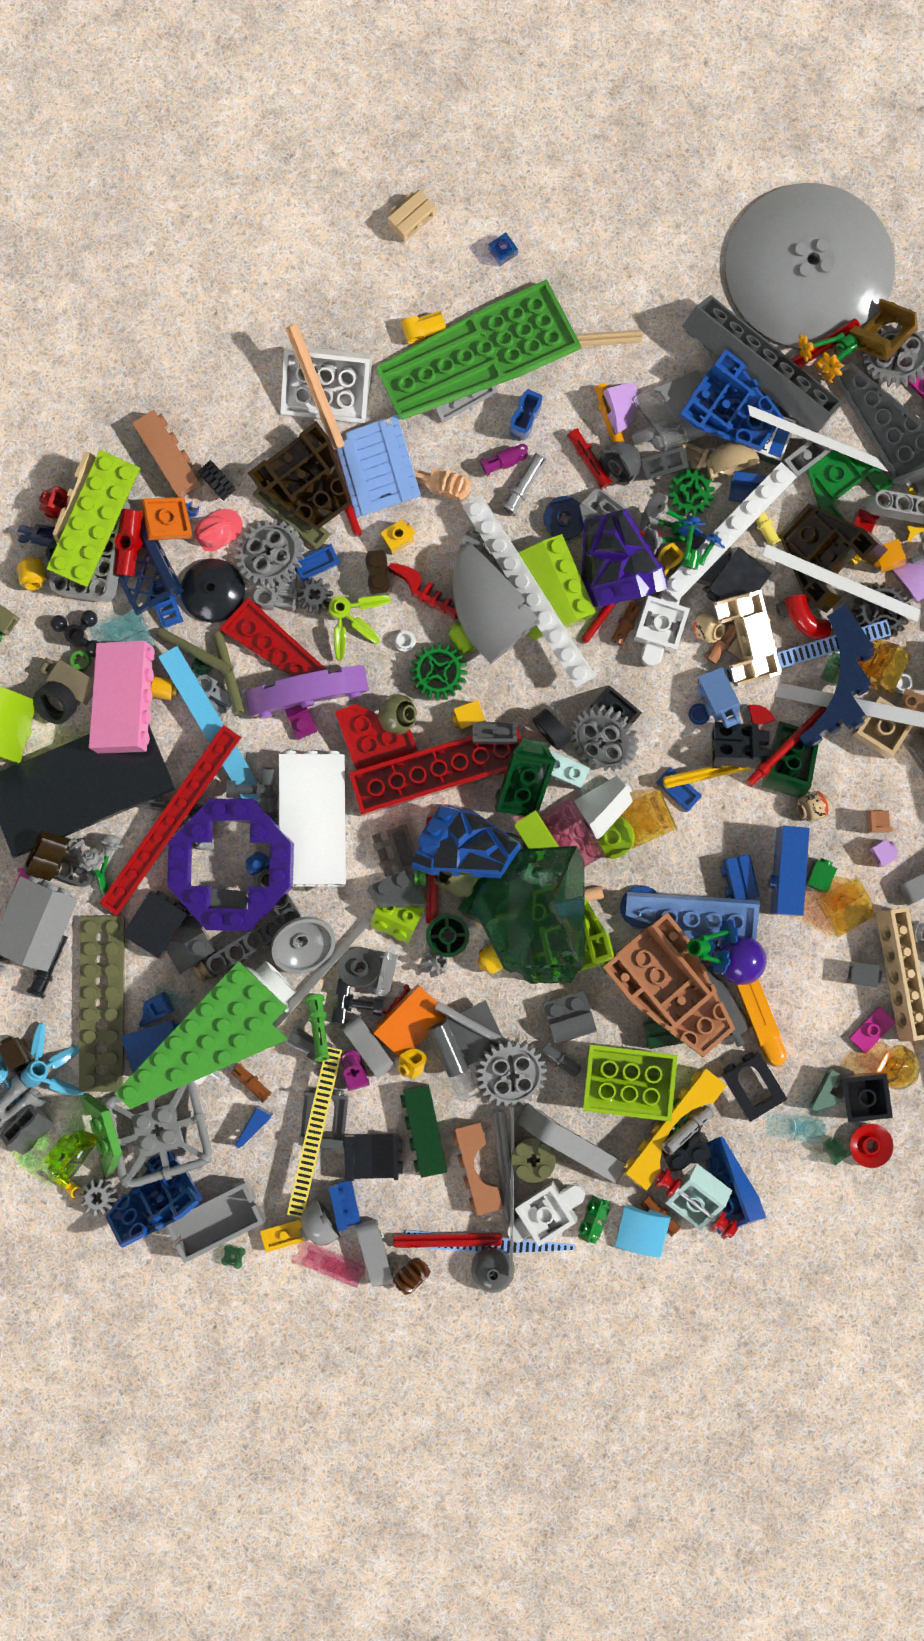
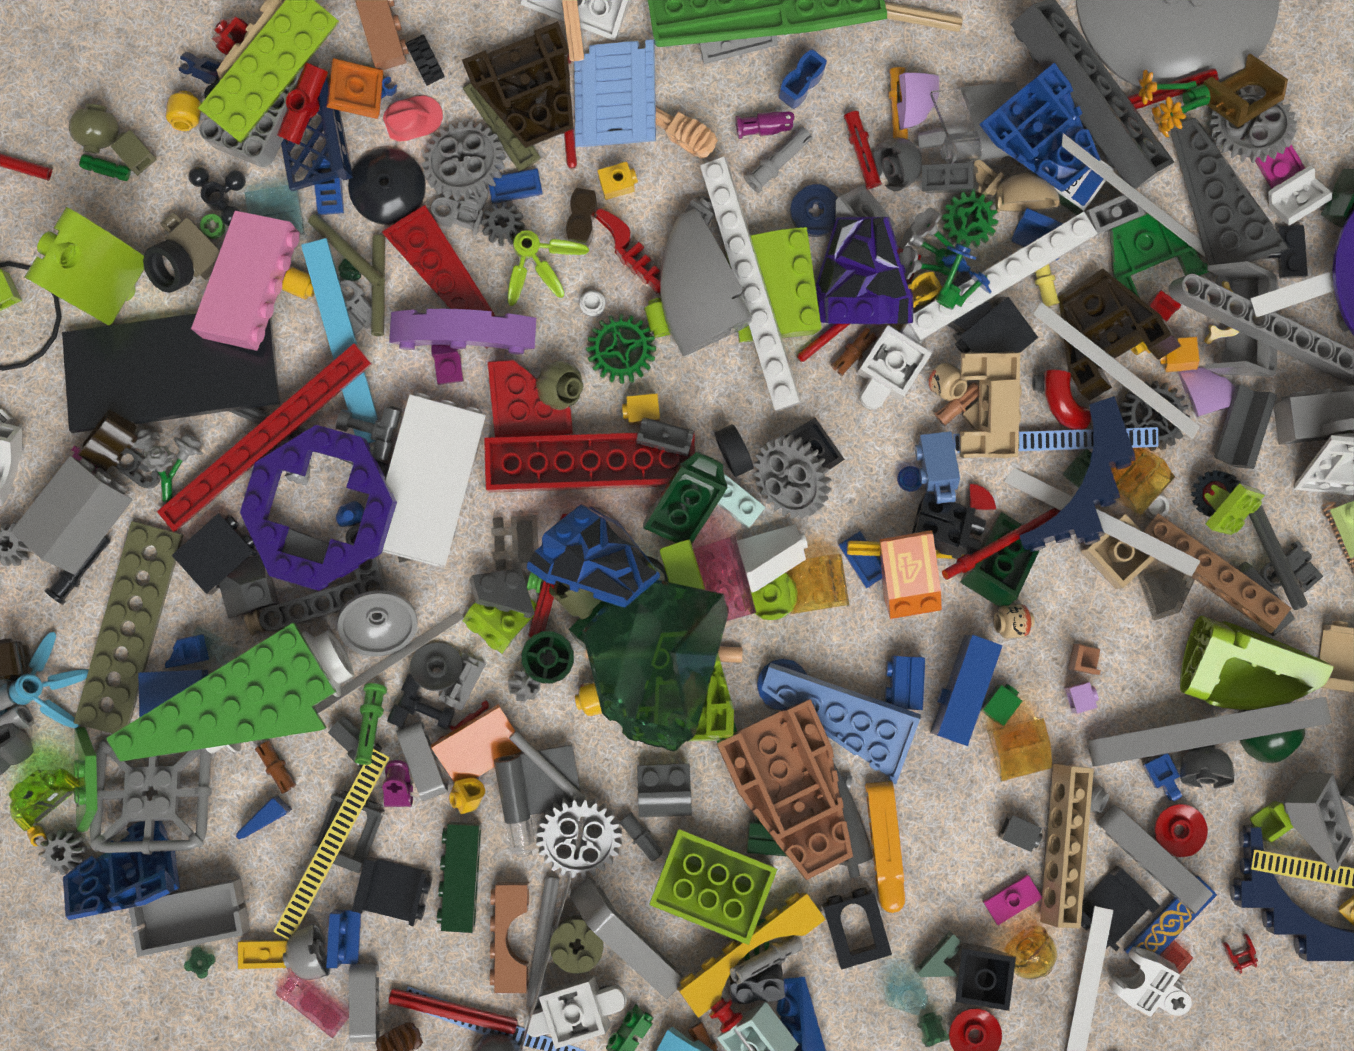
camera: 10 degrees right, 0 degrees up
(704, 946) = (842, 752): plant -> none
(720, 791) = (910, 574): none -> orange slope
(746, 960) = (882, 778): dark purple piece -> none

